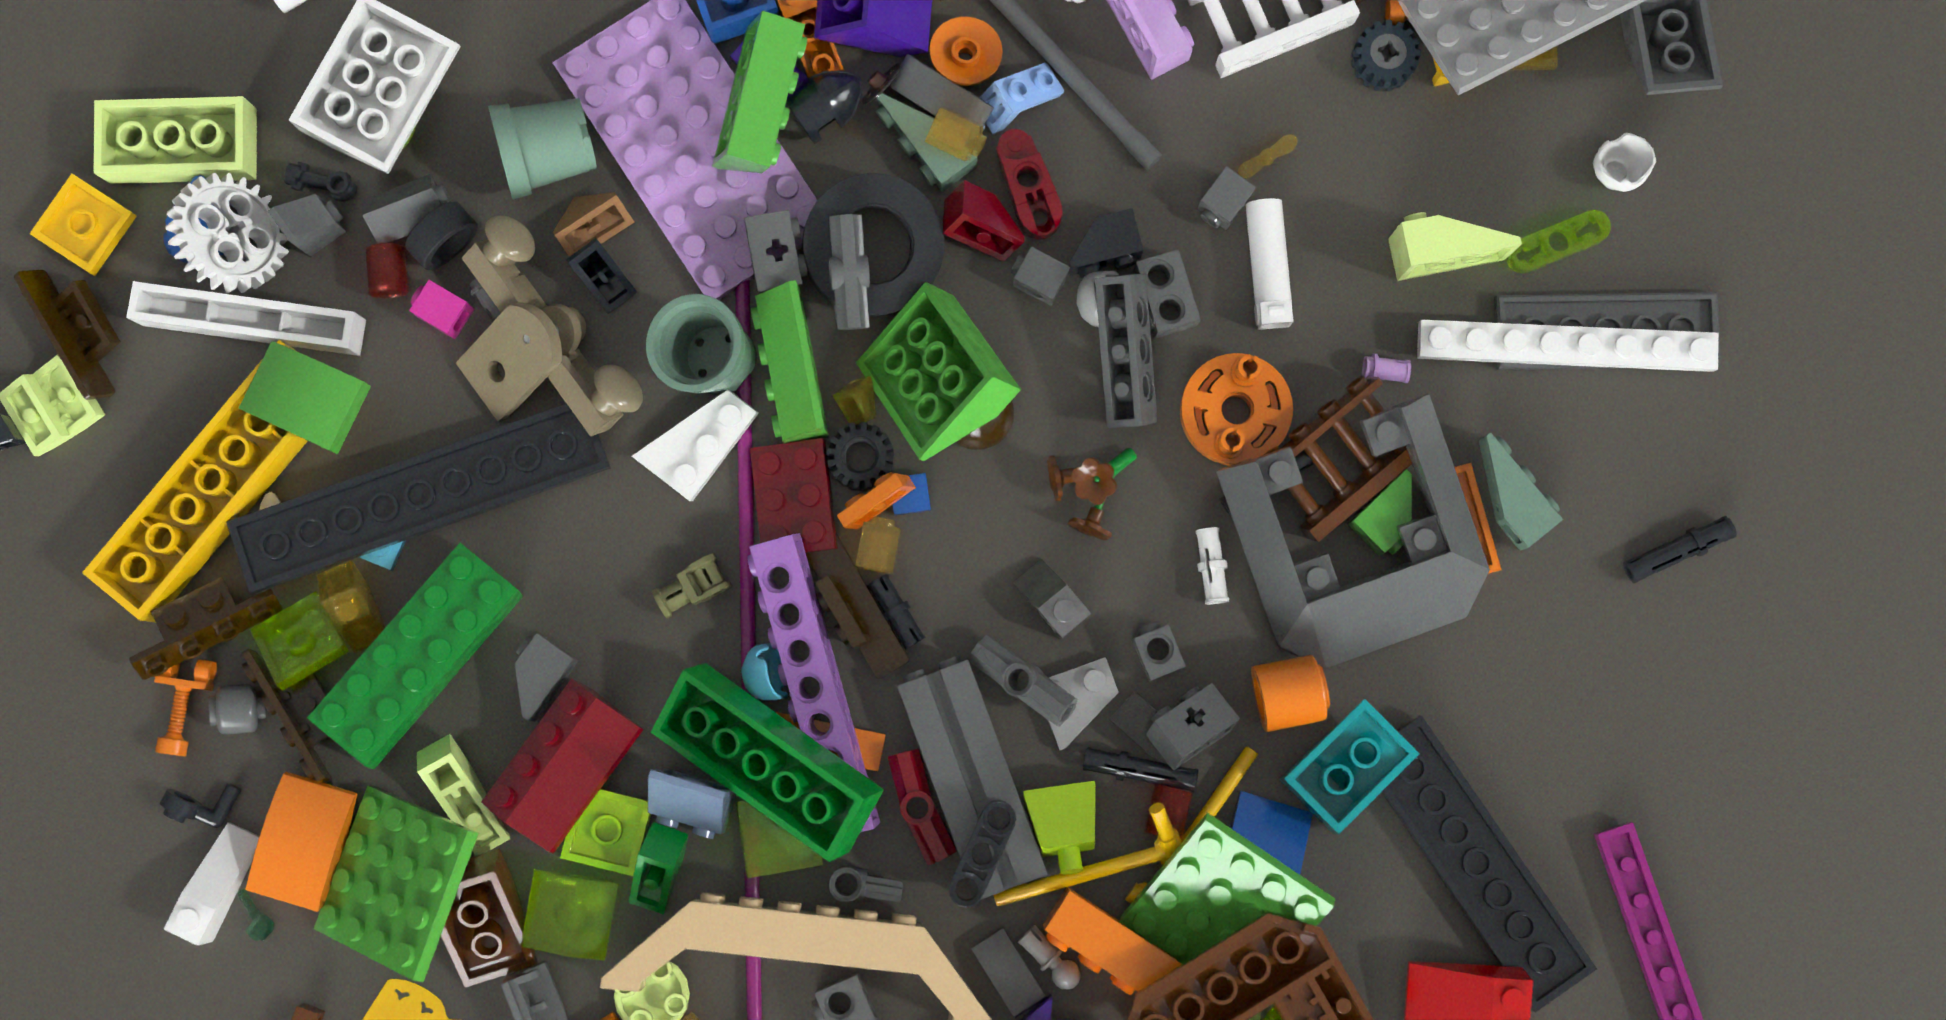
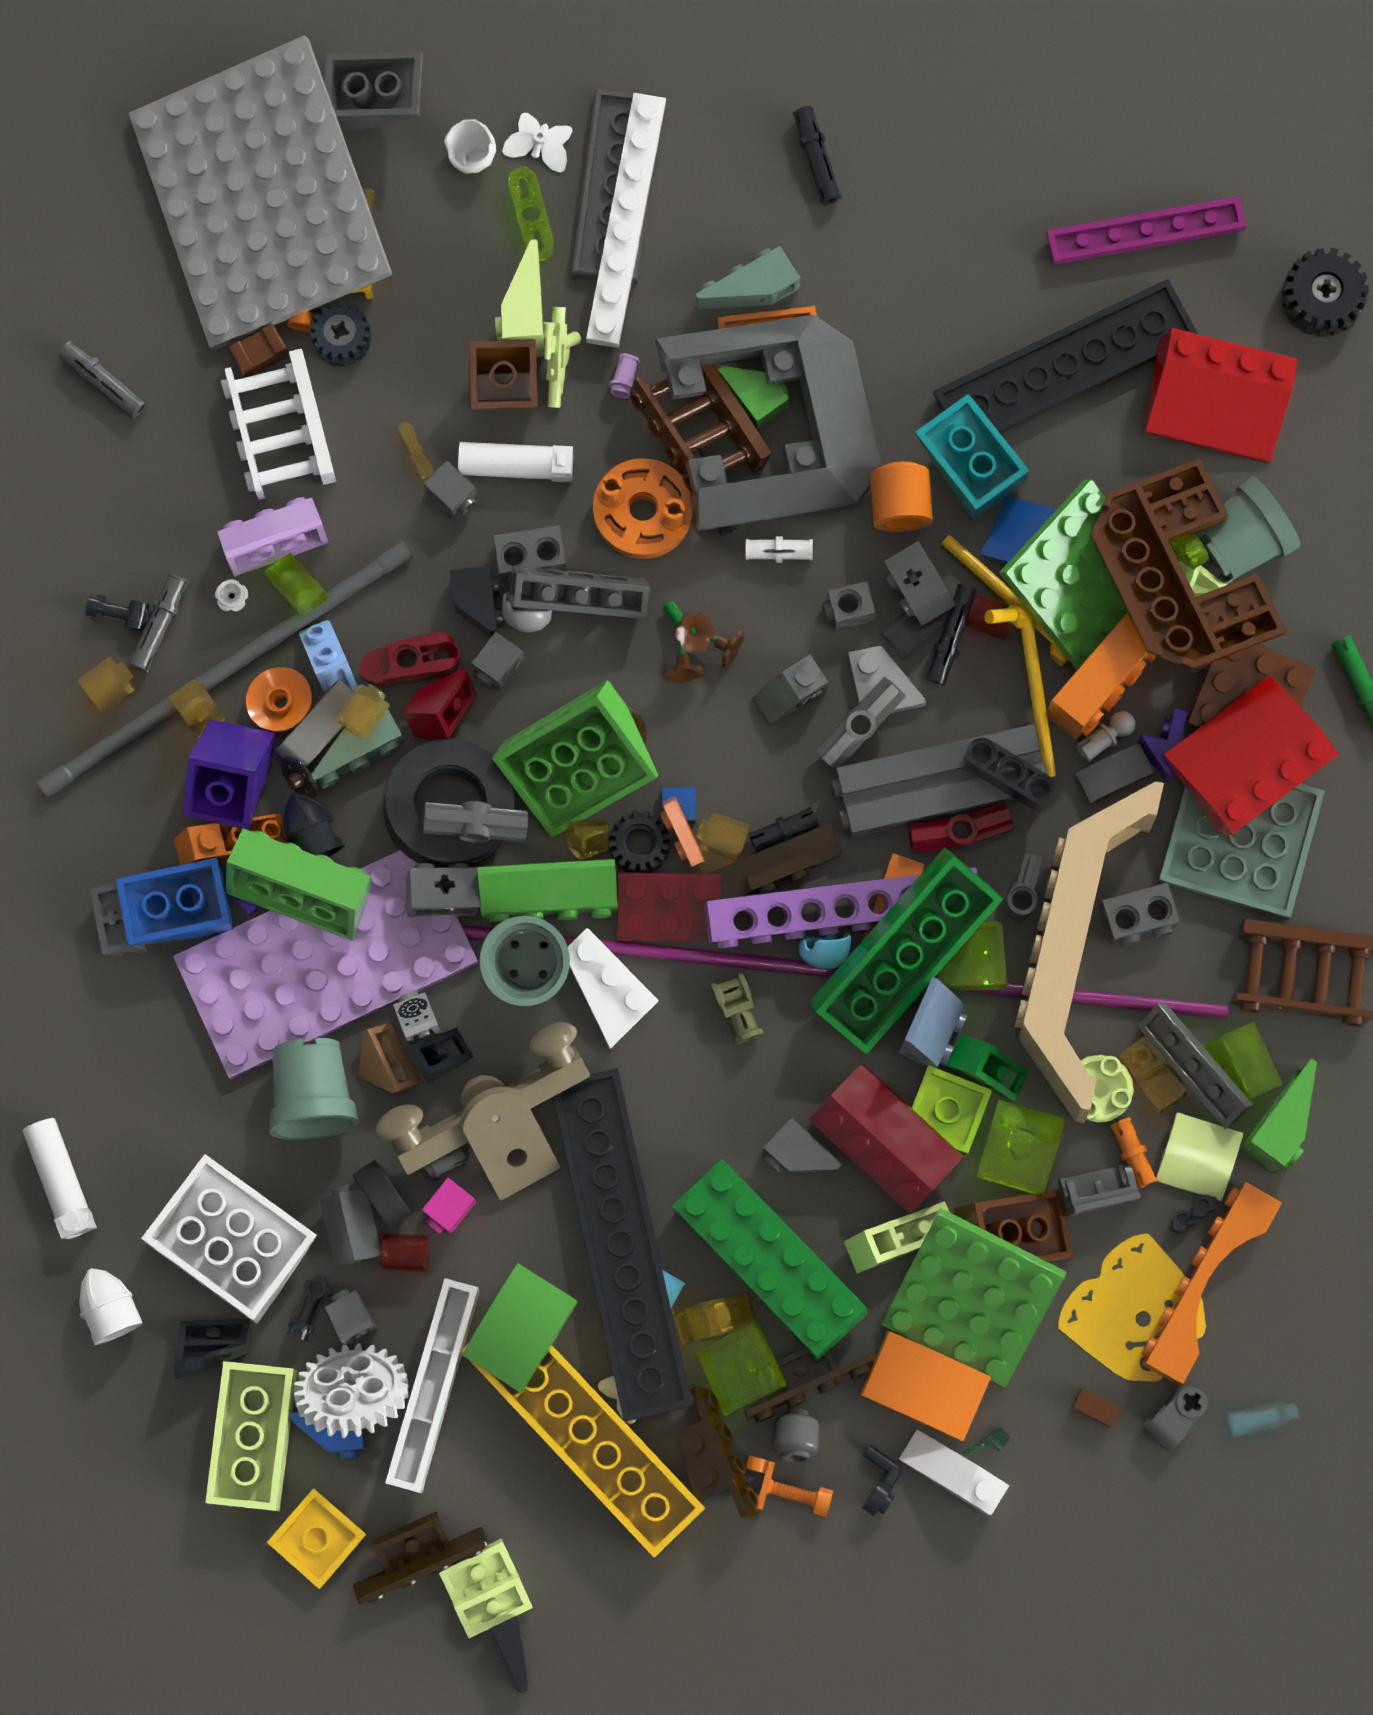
camera: 85 degrees left, 5 degrees down
(267, 81) = (209, 1343): none -> black wing
(635, 245) = (416, 1017): none -> light grey slope
(1063, 822) = (989, 704): lime torso -> none
(1093, 49) = (296, 585): none -> clear neon green plate
(1361, 233) = (502, 374): none -> reddish brown slope
(1399, 291) = (557, 353): none -> yellowish green piece
(1648, 240) = (539, 138): none -> white piece

